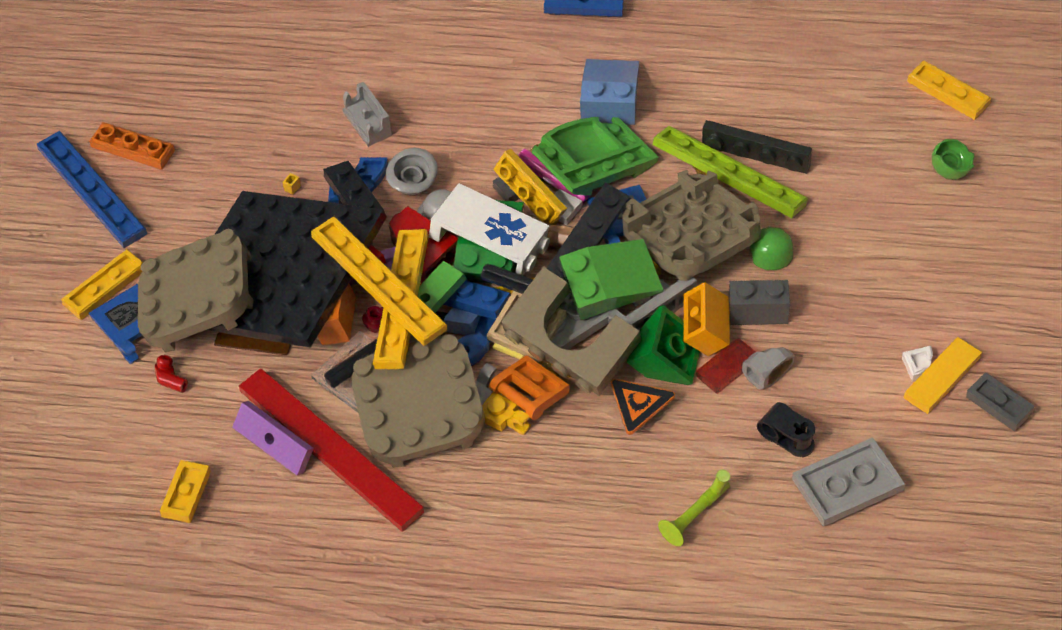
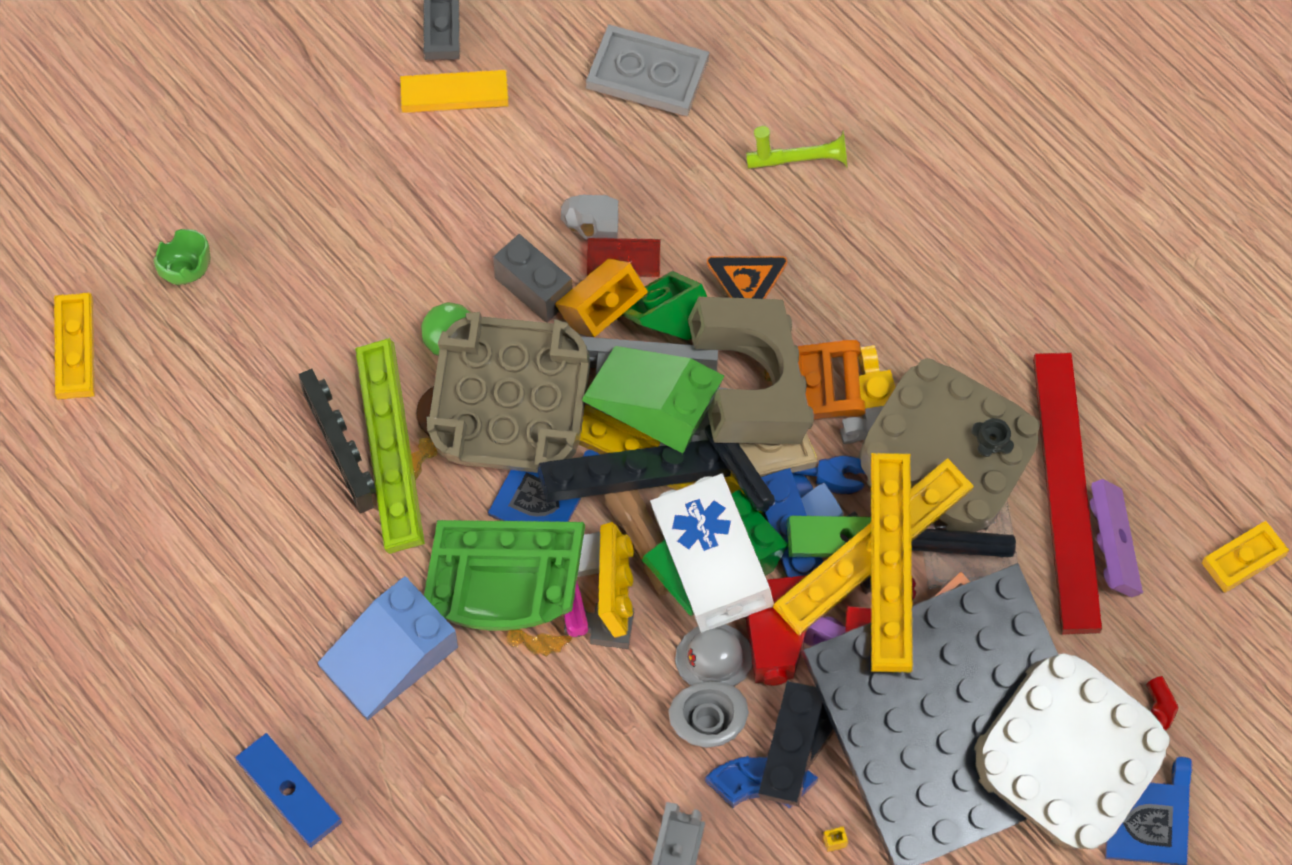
camera: 140 degrees left, 10 degrees up
(392, 402) = (997, 429): none -> pearl dark grey plate
(785, 428) = (645, 151): black piece -> none
(917, 361) = (458, 121): white tile -> none

